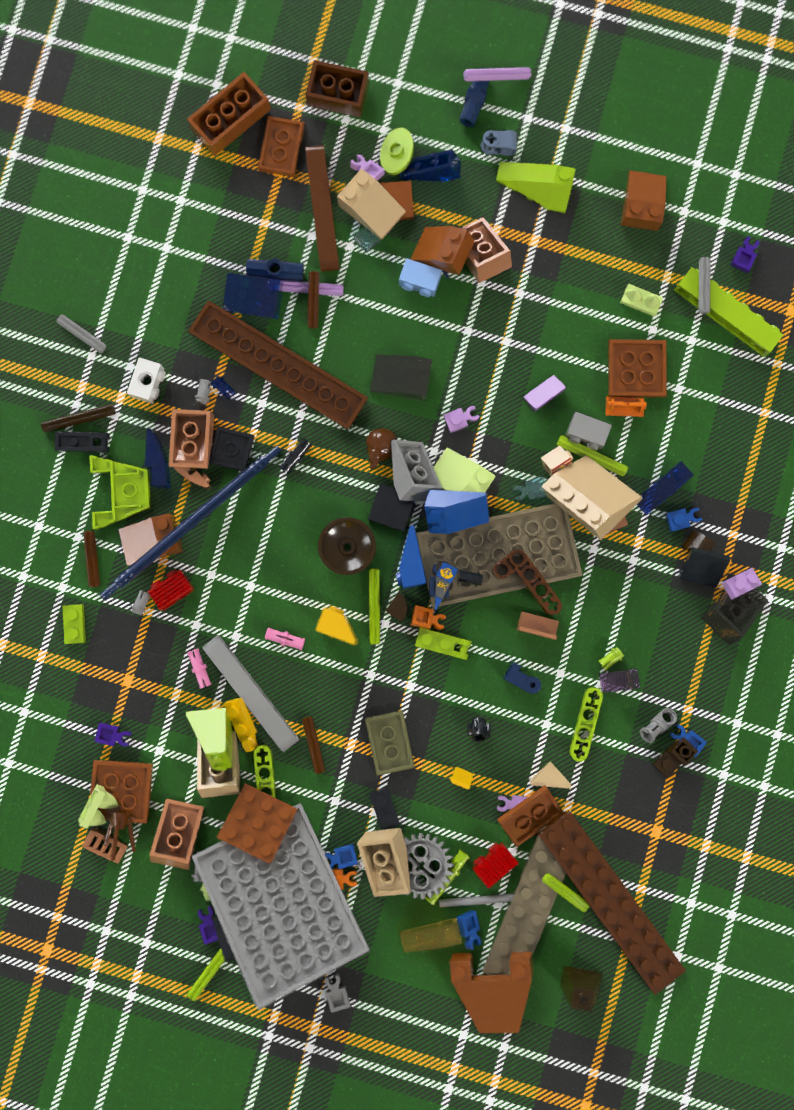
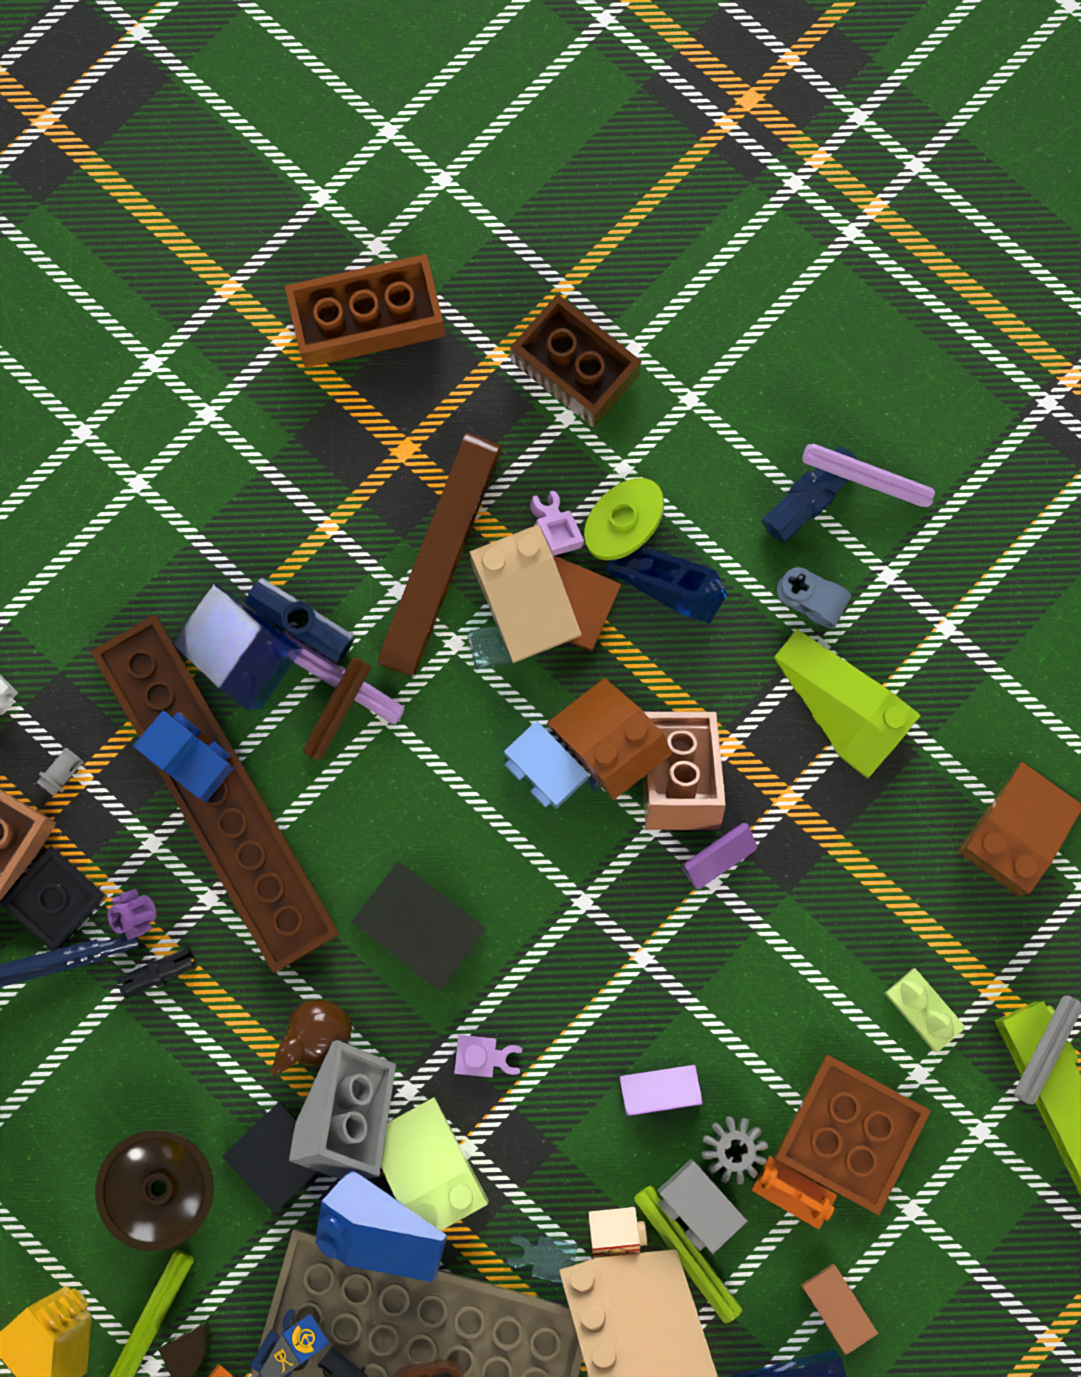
camera: 25 degrees right, 5 degrees down
(219, 384) = (98, 781): clear blue pin -> none
(257, 353) = (178, 752): none -> blue brick
(271, 436) = (131, 914): none -> medium lavender gear
(281, 146) = (428, 409): dark orange tile -> none
(411, 568) = (243, 1300): blue slope -> none
(517, 278) = (720, 856): none -> medium lavender slope
(593, 407) = (745, 1157): none -> light grey gear
(669, 445) = (839, 1309): none -> nougat tile

